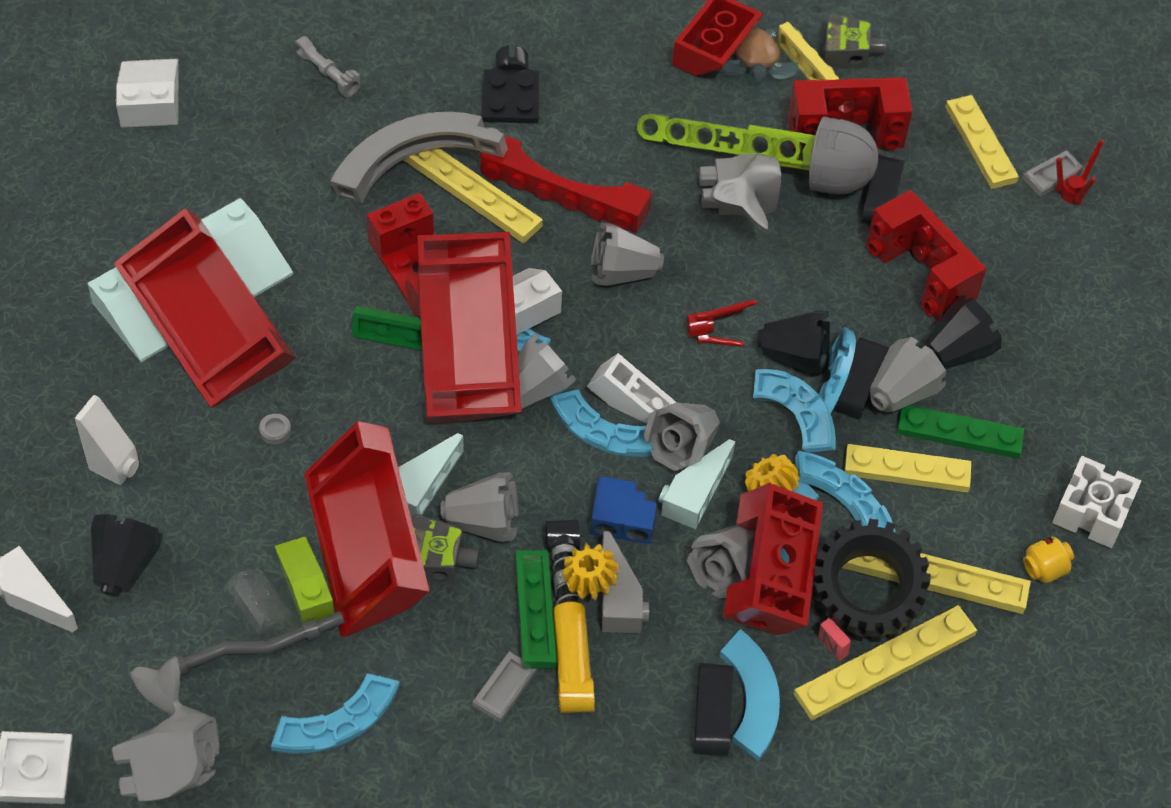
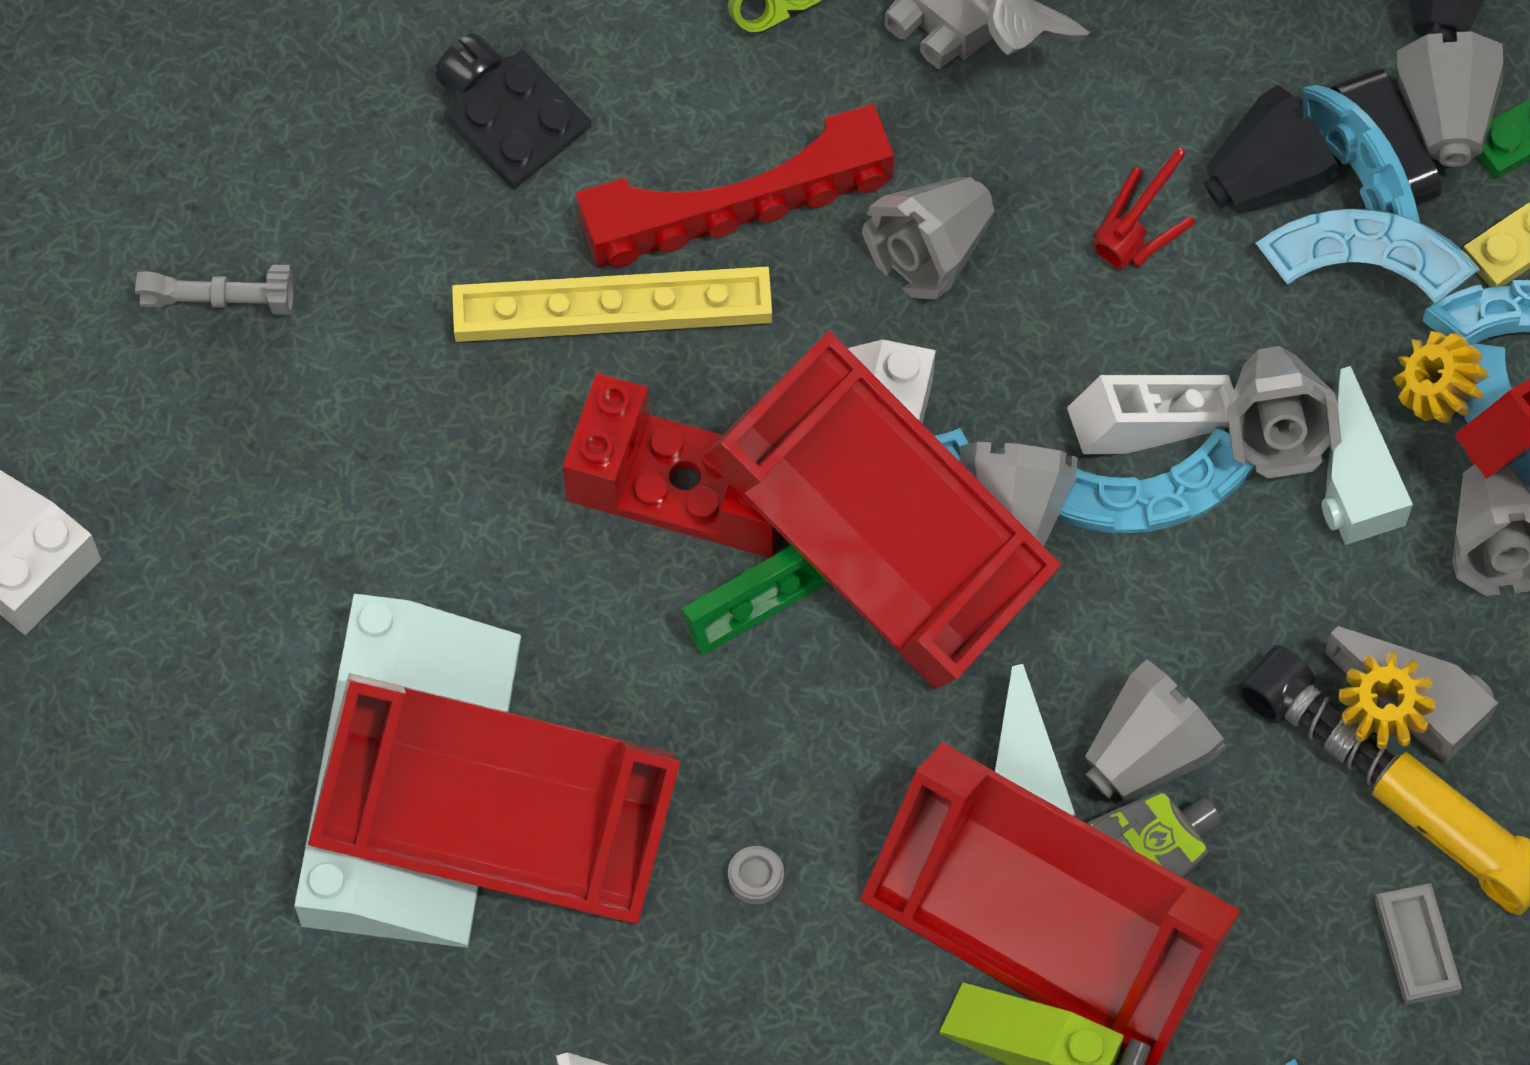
camera: 40 degrees left, 10 degrees up
(409, 137) = (479, 296): light grey arch -> none
(535, 609) = (1351, 810): green plate -> none
(621, 504) = (1306, 579): blue piece -> none

